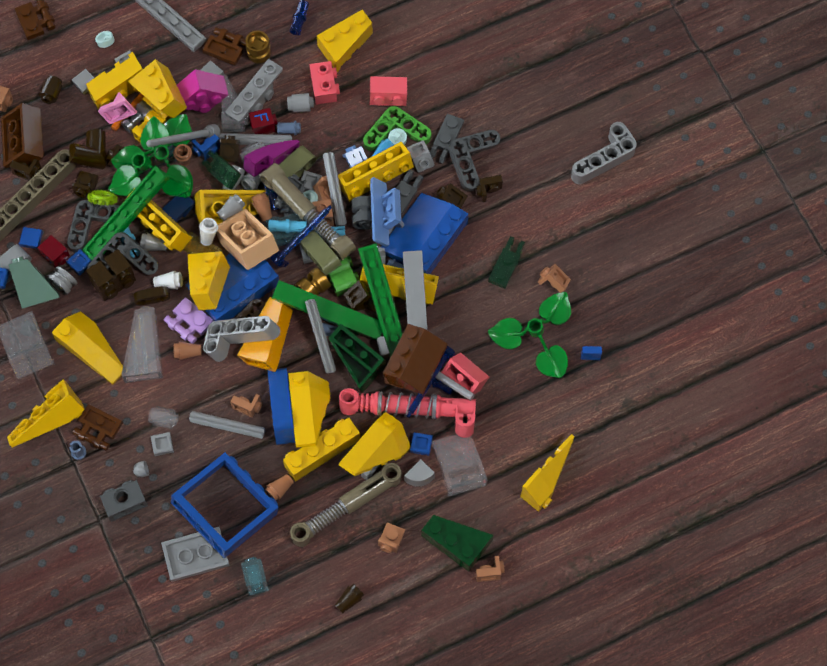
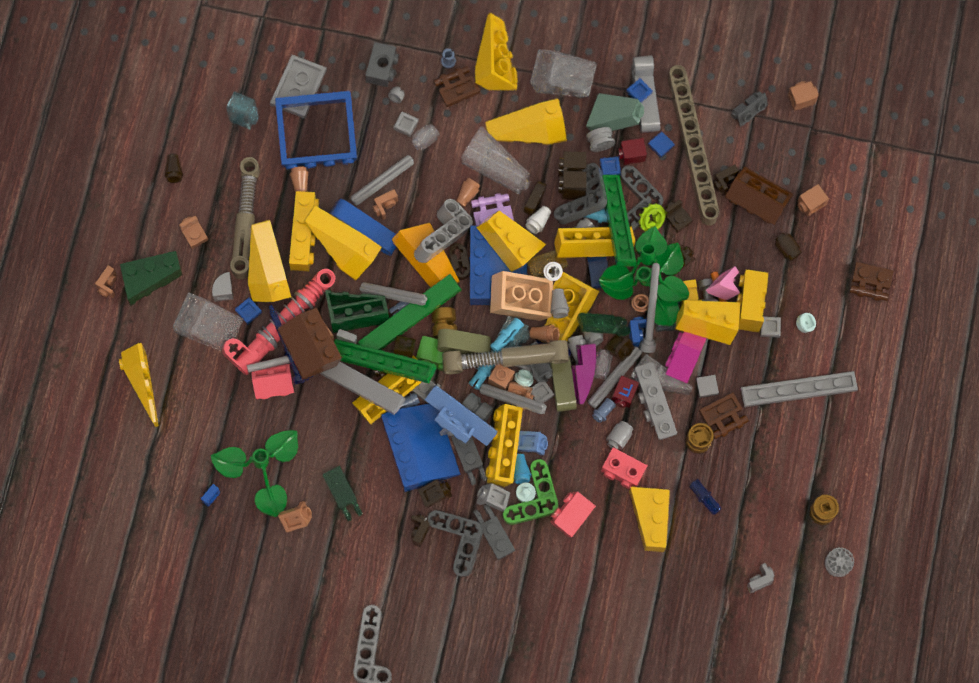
camera: 125 degrees right, 5 degrees up
(81, 80) = (777, 280): light grey tile -> none
(91, 154) = (699, 239): dark brown brick -> none
(278, 258) = (487, 318): clear blue piece -> none

